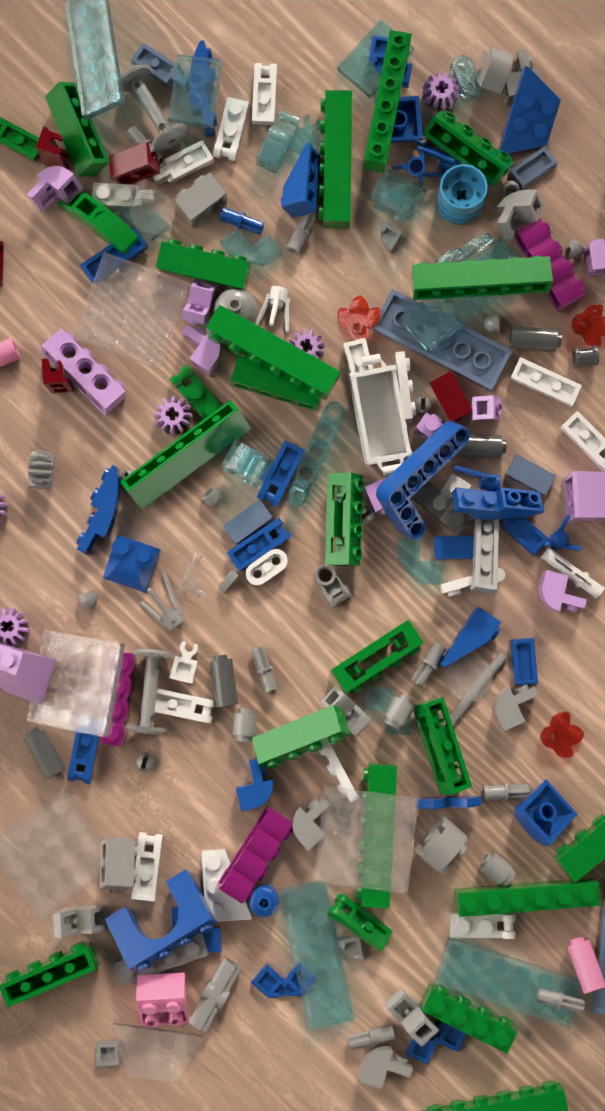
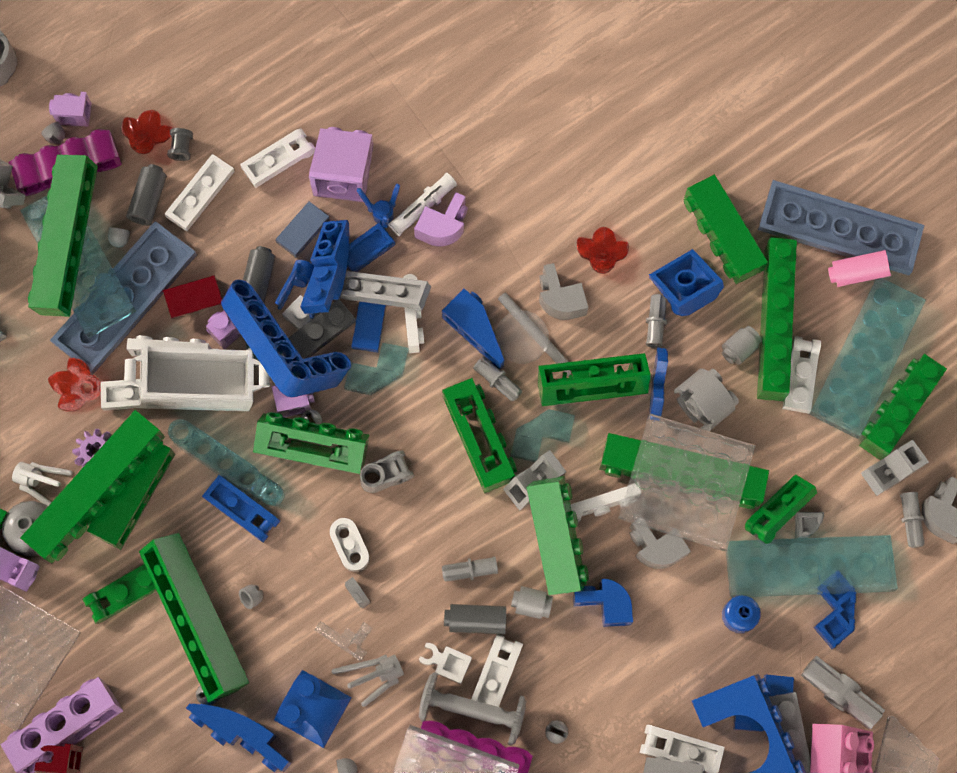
camera: 80 degrees left, 10 degrees down
(164, 419) = (146, 634): lavender gear -> none
(207, 354) = (71, 568): lavender brick -> none
(222, 905) = (718, 663): white wing -> none
(247, 522) = (290, 558): sand blue tile -> none
(248, 463) = (219, 543): clear light blue brick -> none
(254, 854) = (686, 616): magenta brick -> none
(258, 545) = (321, 550): blue plate -> none
(399, 711) = (546, 419): light grey brick -> none
(418, 405) = (192, 335): light grey hinge -> none
(446, 1036) = (922, 431): blue tile -> none
(467, 250) = (23, 242): clear light blue tile -> none
(491, 408) = (215, 259): lavender brick -> none
(524, 661) = (513, 275): blue tile -> none
(559, 1000) = (895, 303): light grey axle -> none

